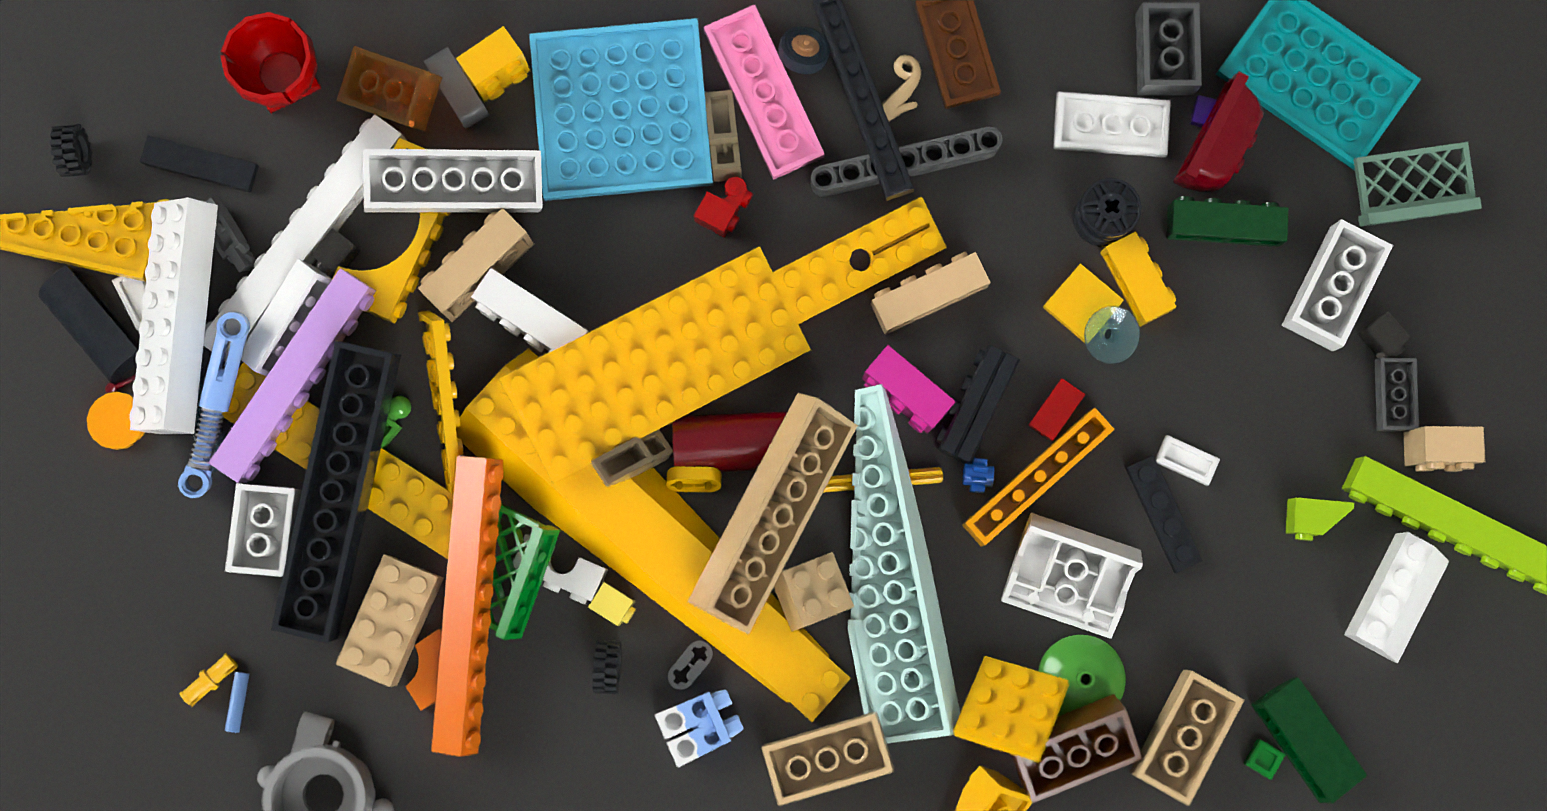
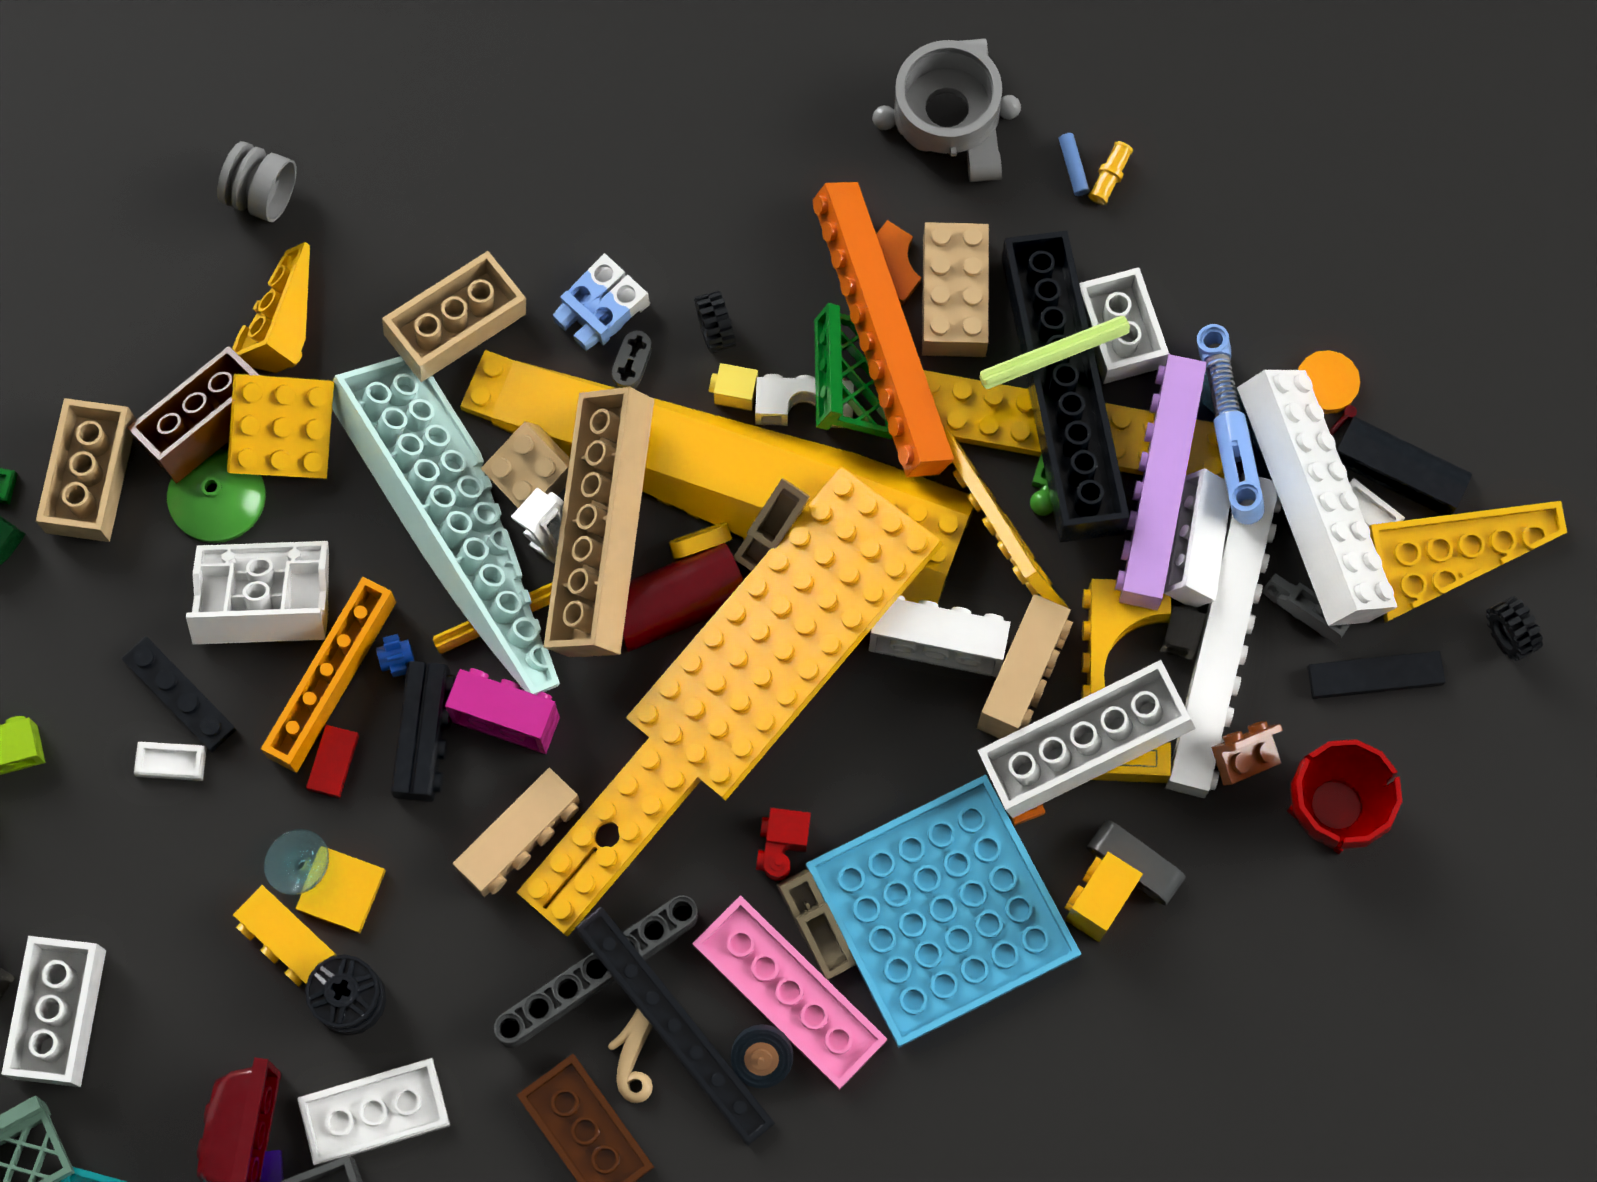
camera: 160 degrees right, 10 degrees down
(330, 134) = (1247, 753): none -> dark orange bracket
(331, 513) = (1054, 352): none -> yellowish green axle
(389, 88) = (1204, 823): clear orange brick -> none
(819, 537) = (542, 520): none -> white window
(1227, 222) = (202, 1041): dark green brick -> none

